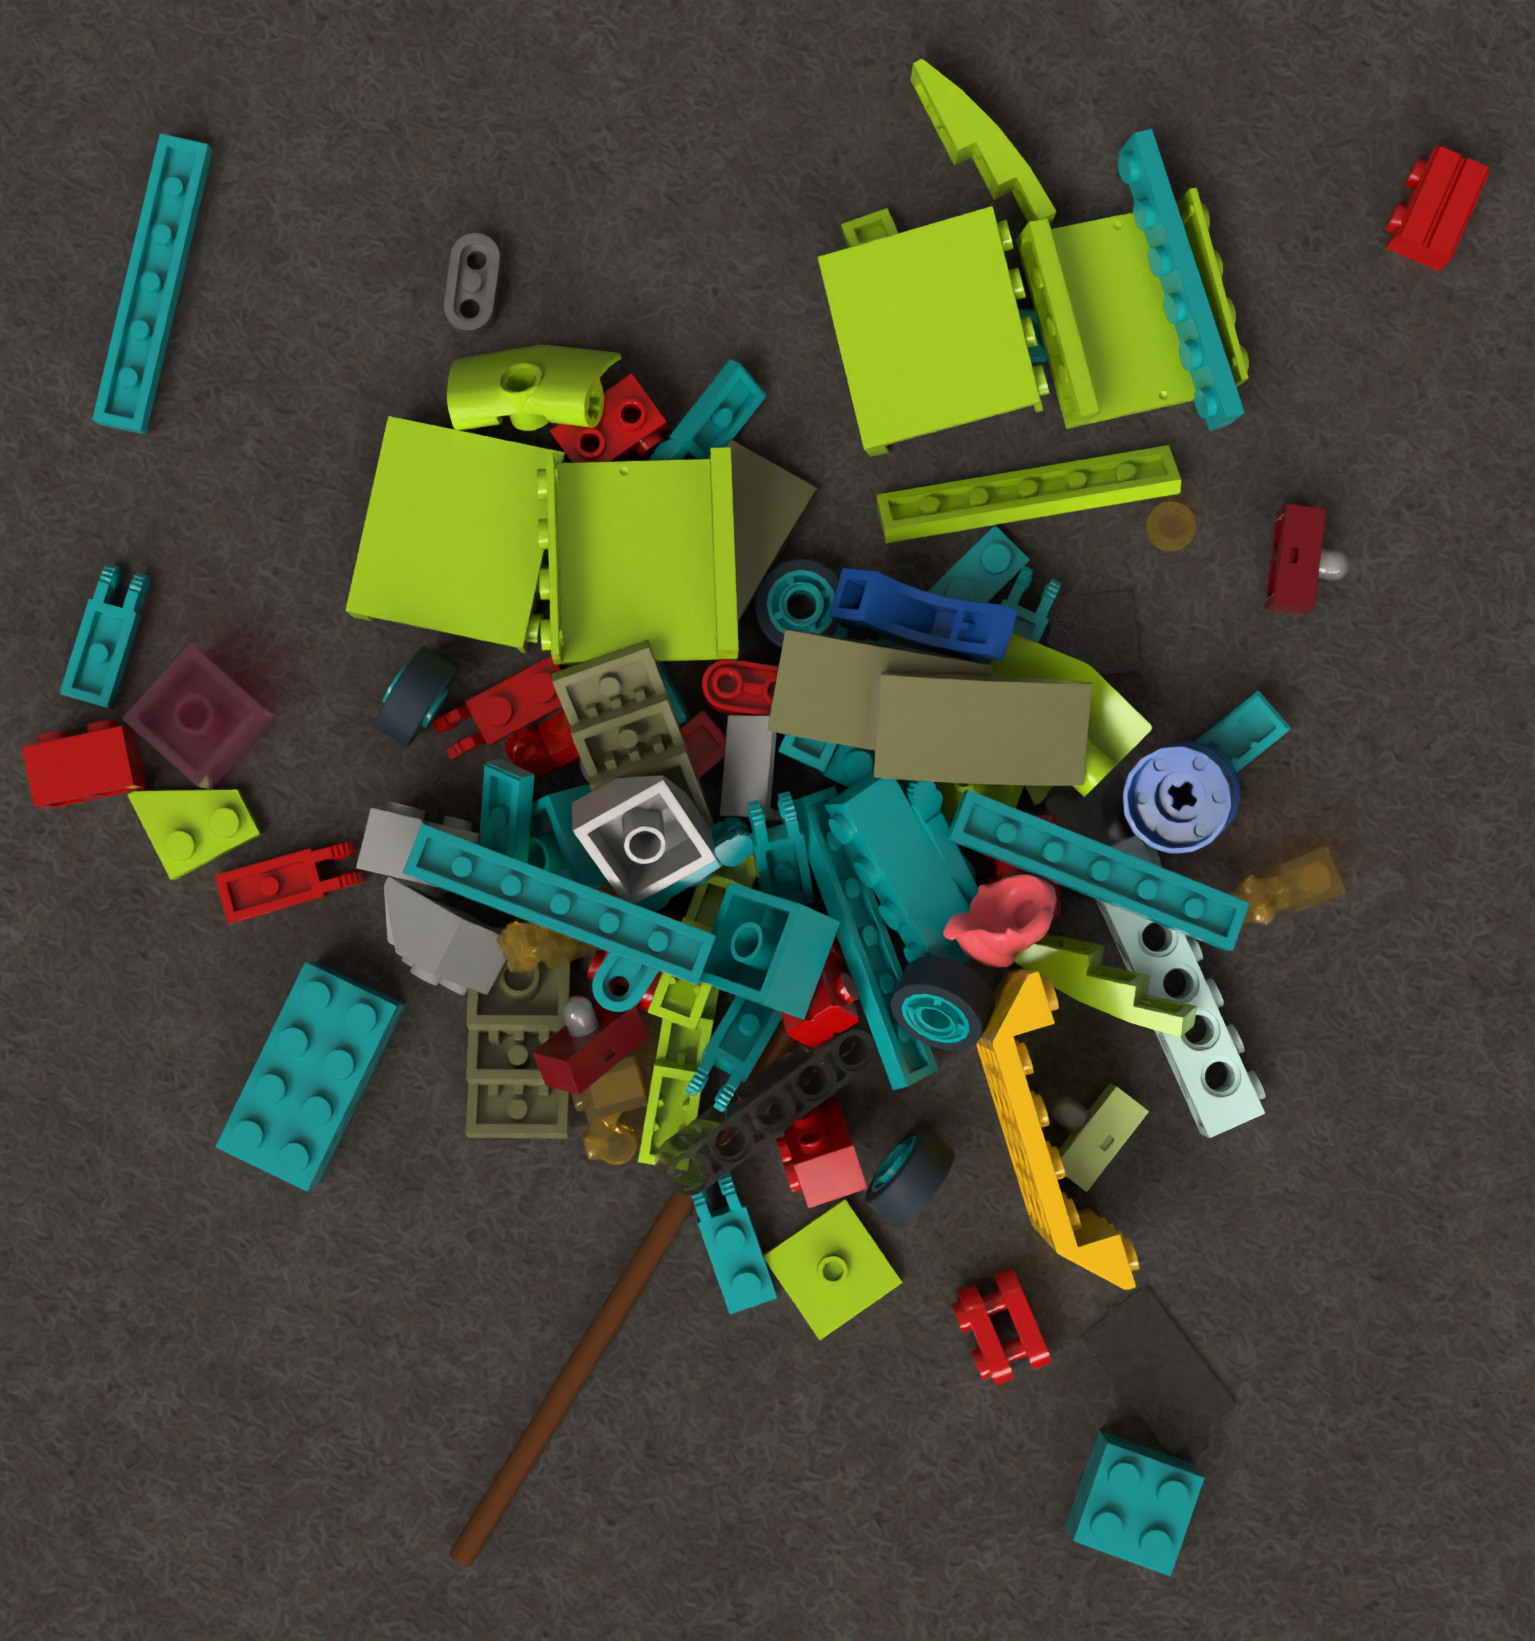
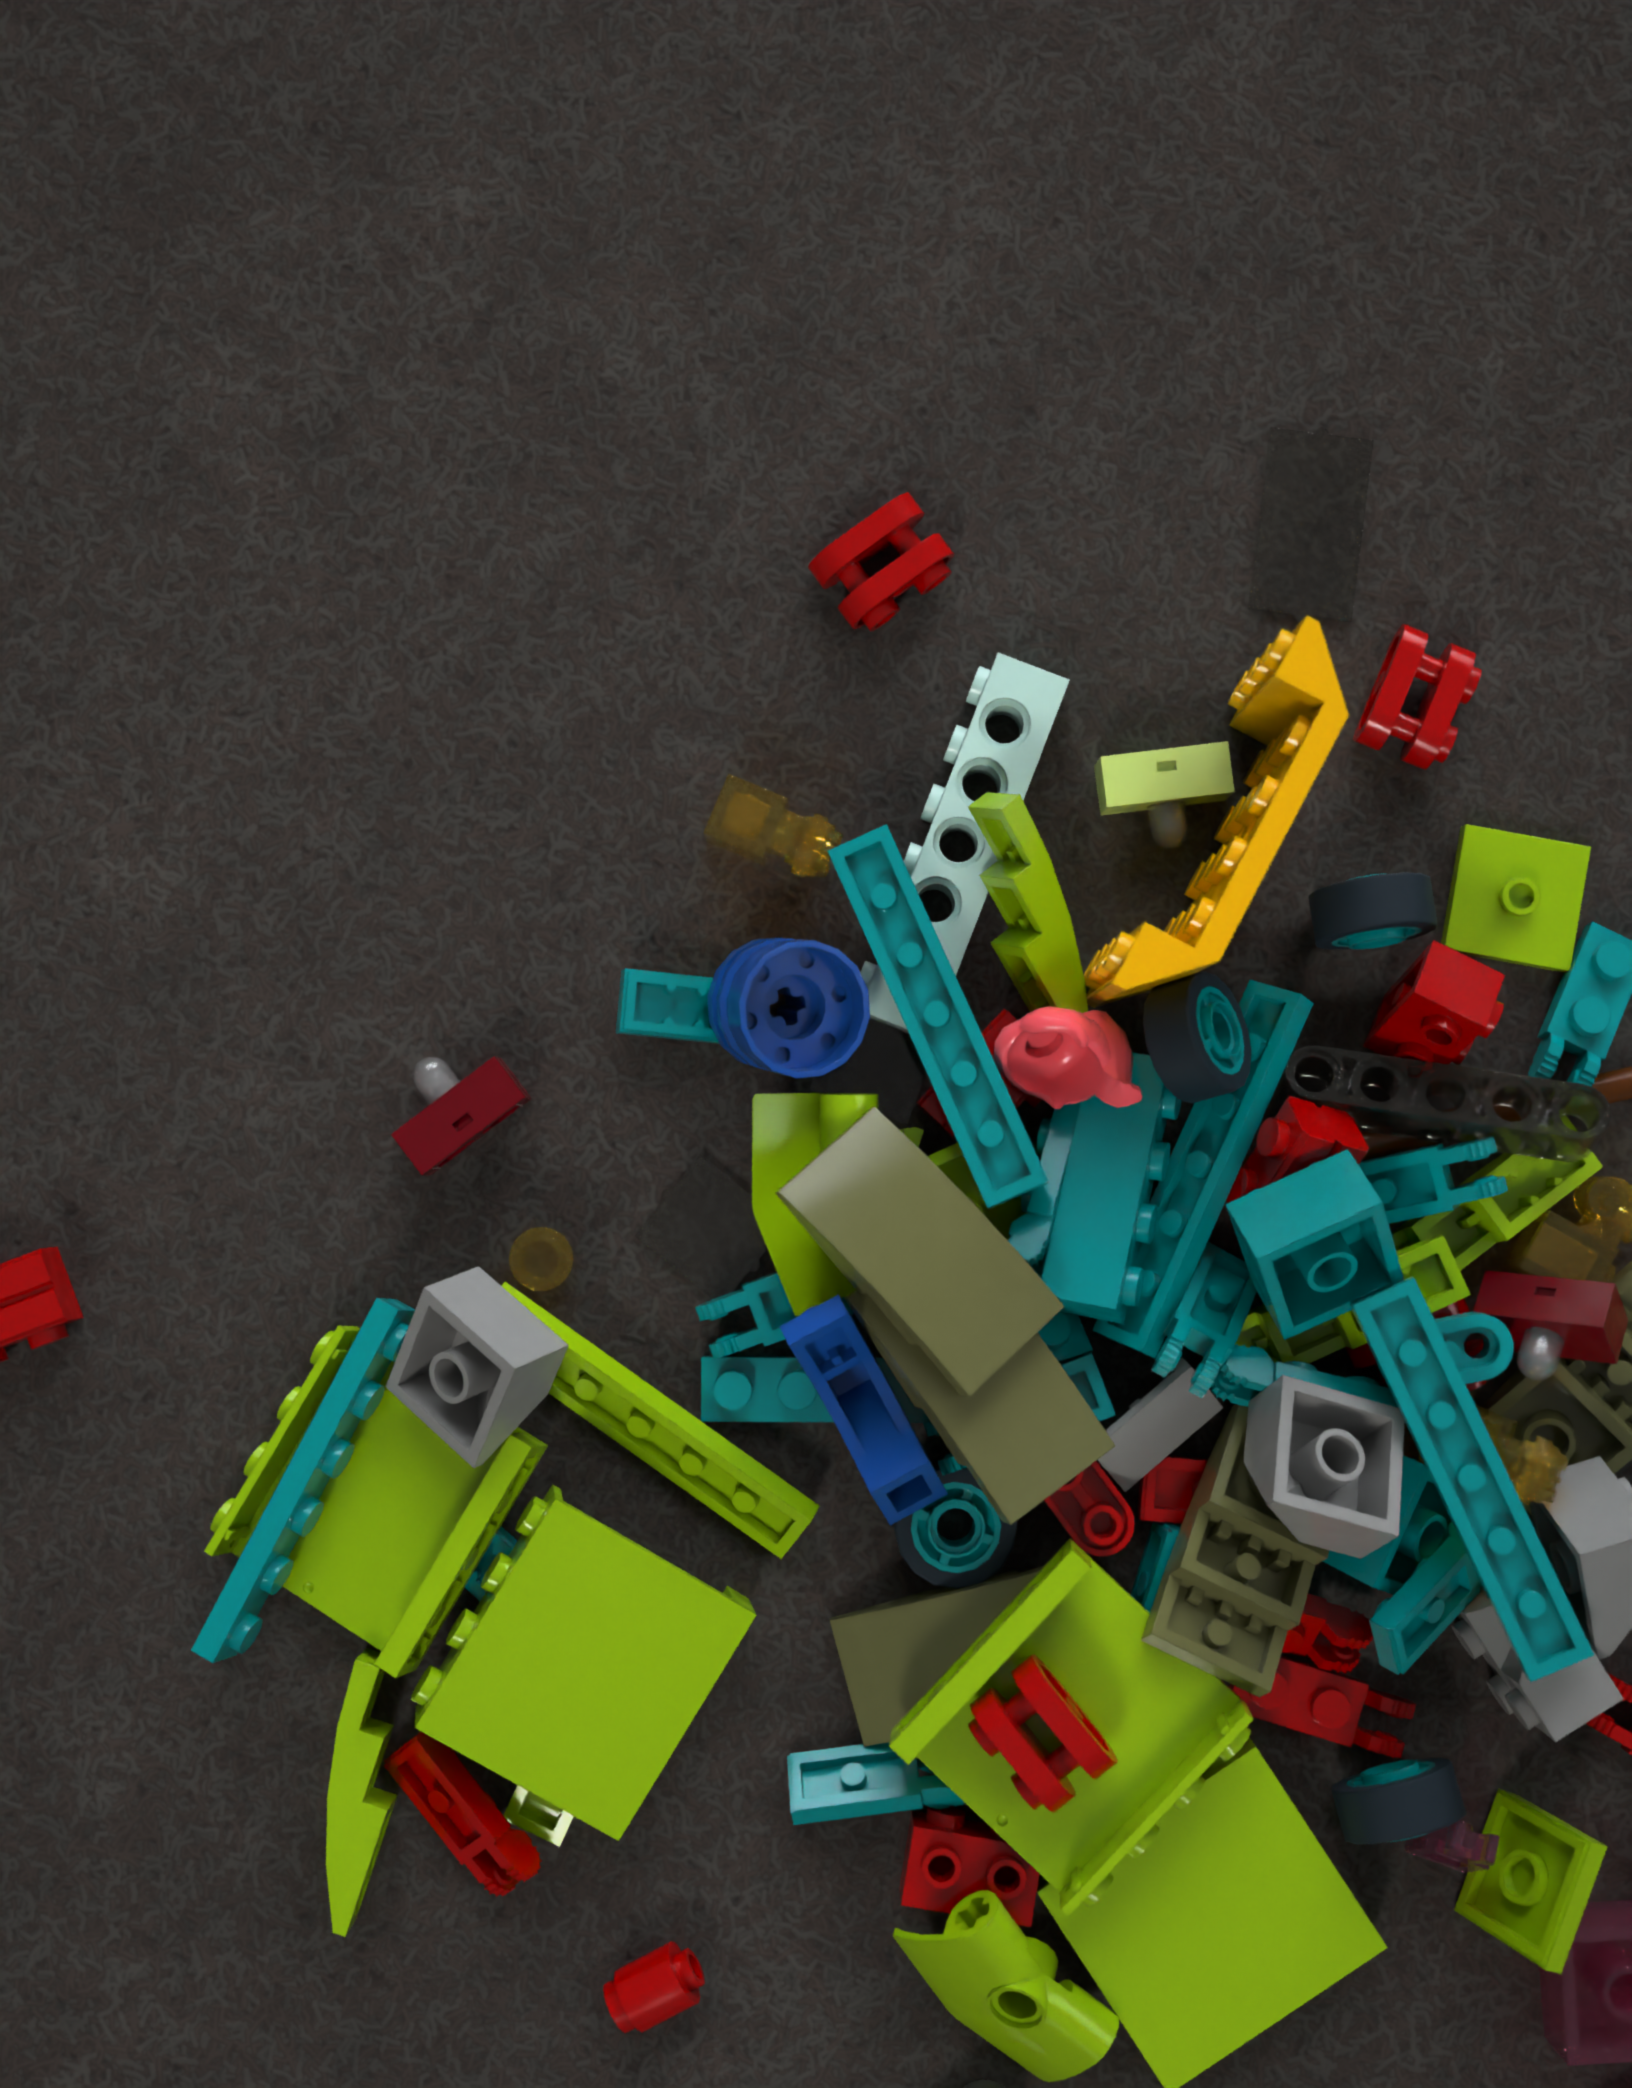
camera: 130 degrees left, 0 degrees up
(302, 724) = (1537, 1882): none -> lime plate
(359, 702) = (1456, 1847): none -> clear pink plate
(633, 514) = (1039, 1774): none -> red brick
(716, 200) = (654, 1988): none -> red brick
(911, 189) = (463, 1814): none -> red hinge
(1134, 1503) = (1452, 431): teal brick -> none
(1158, 430) = (474, 1363): none -> light grey slope
(1363, 1077) = (919, 564): none -> red brick

